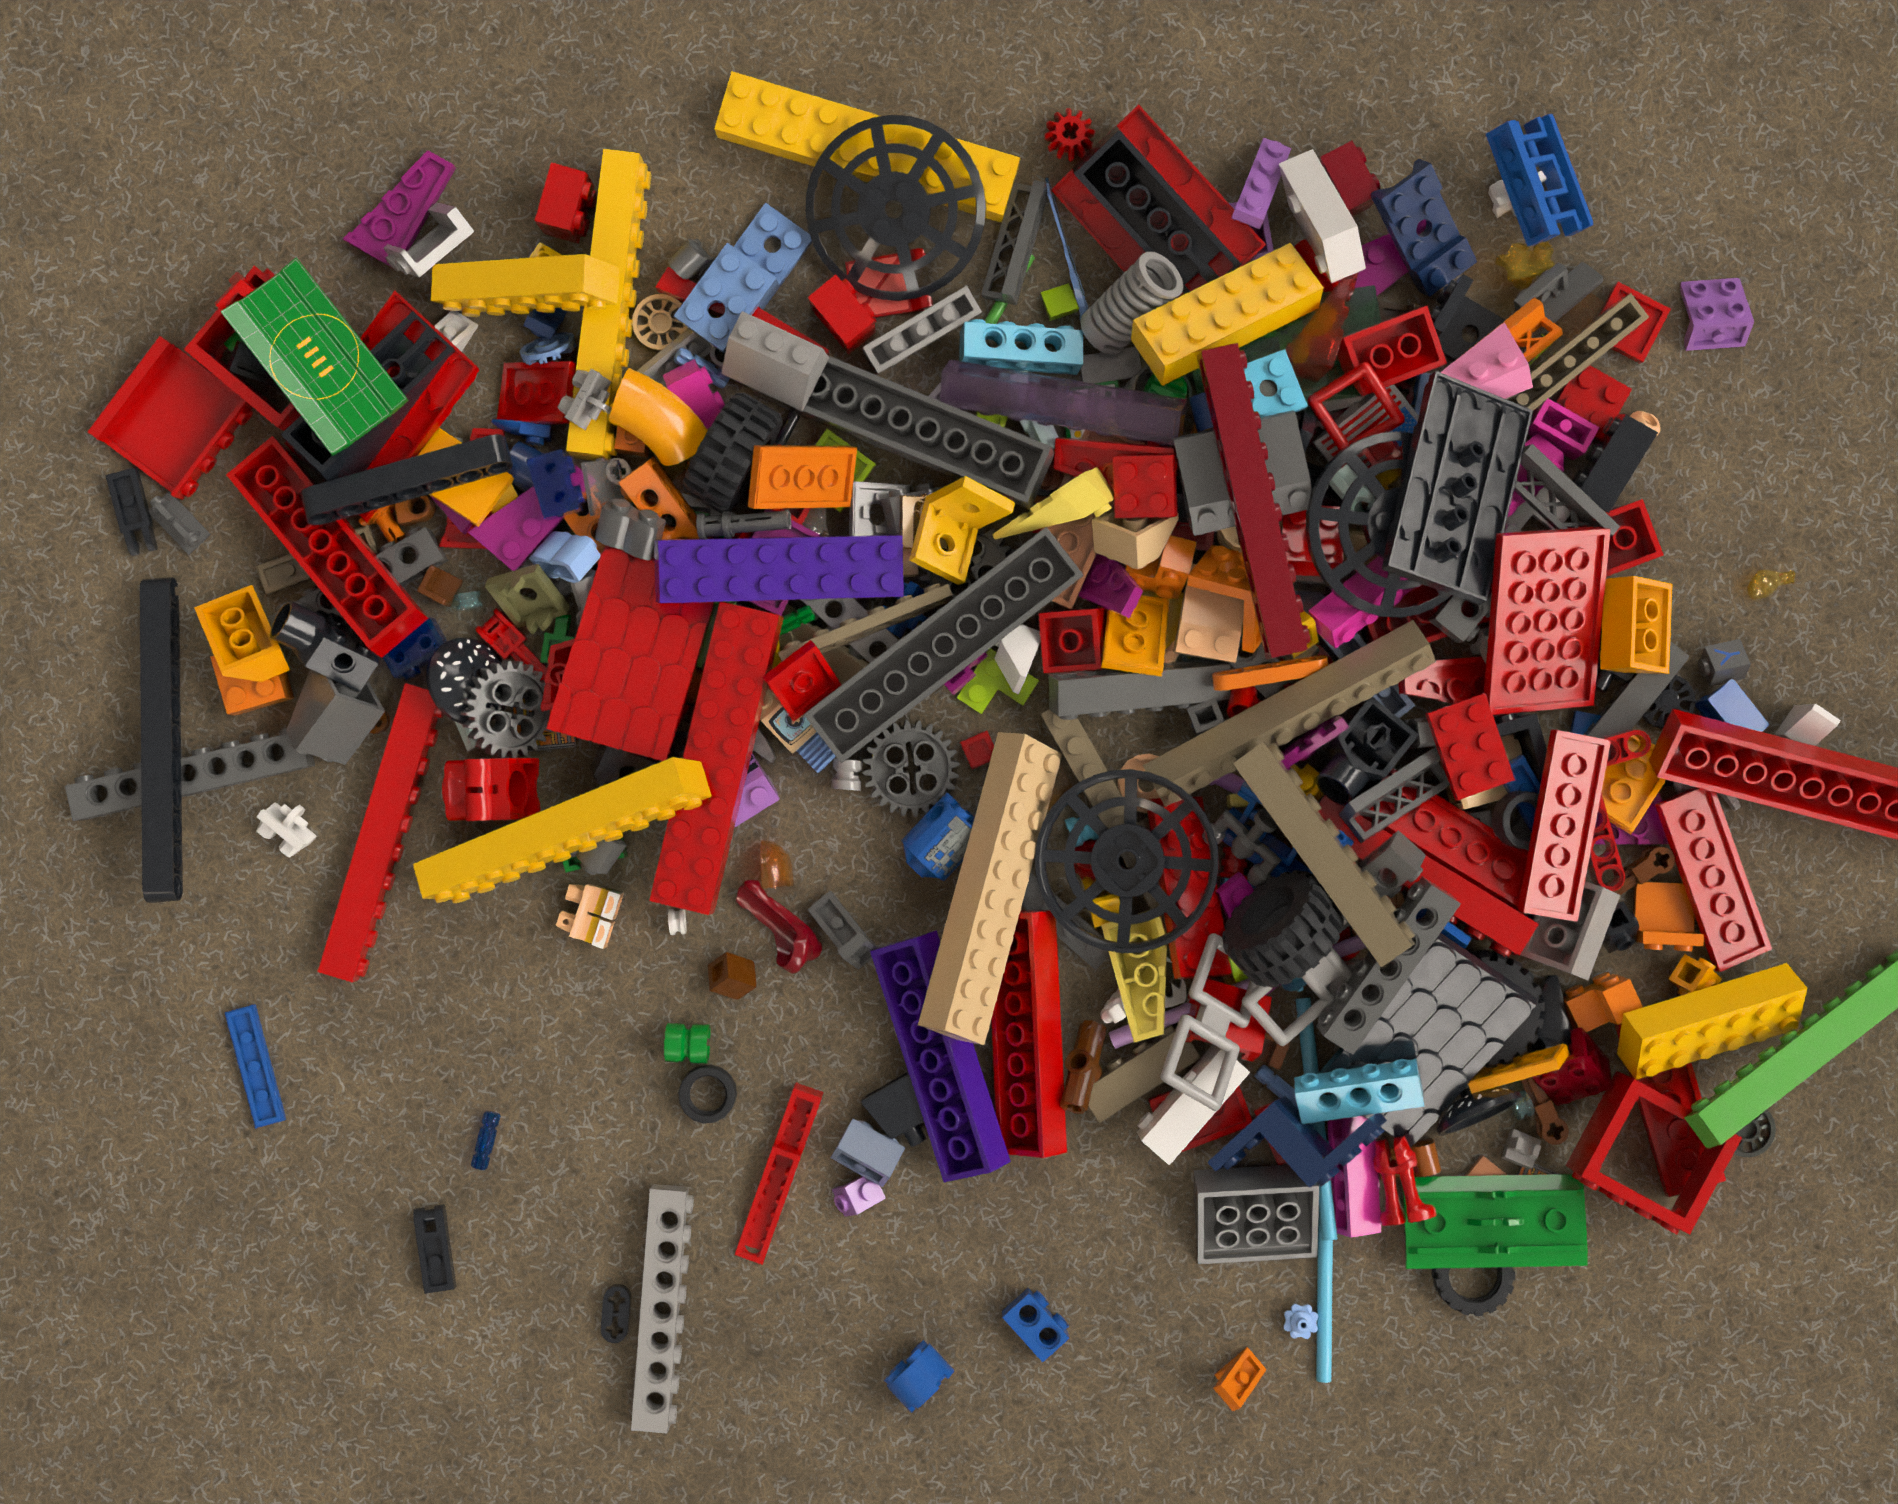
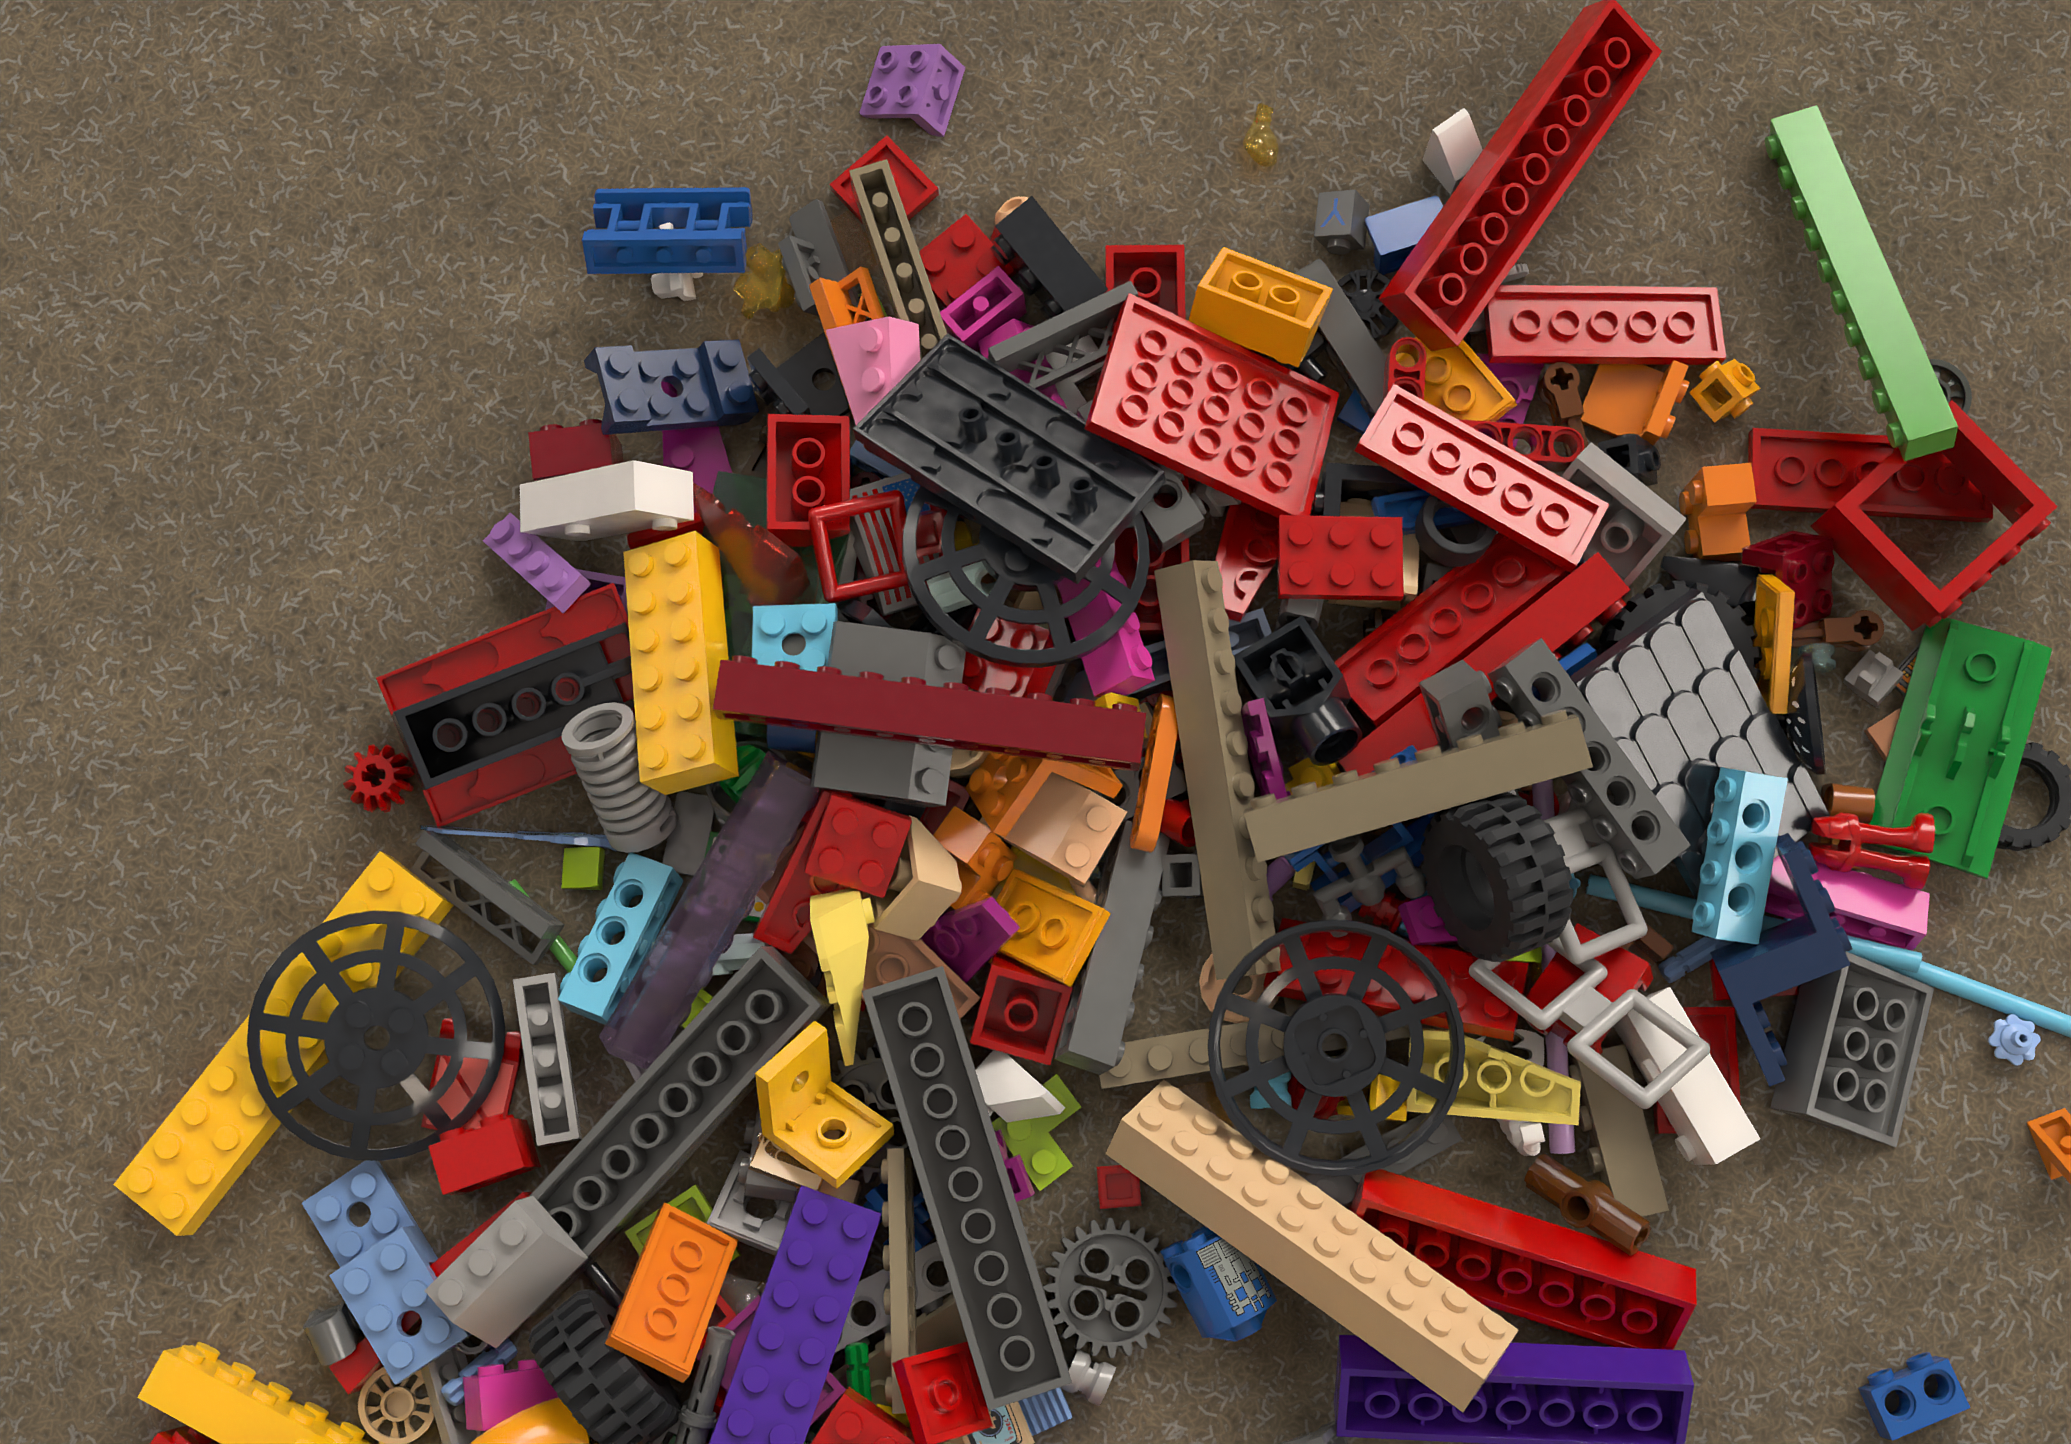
camera: 65 degrees left, 10 degrees down
(1384, 790) = (1355, 676): dark grey fence -> none
(1711, 1021) = (1787, 389): yellow brick -> none

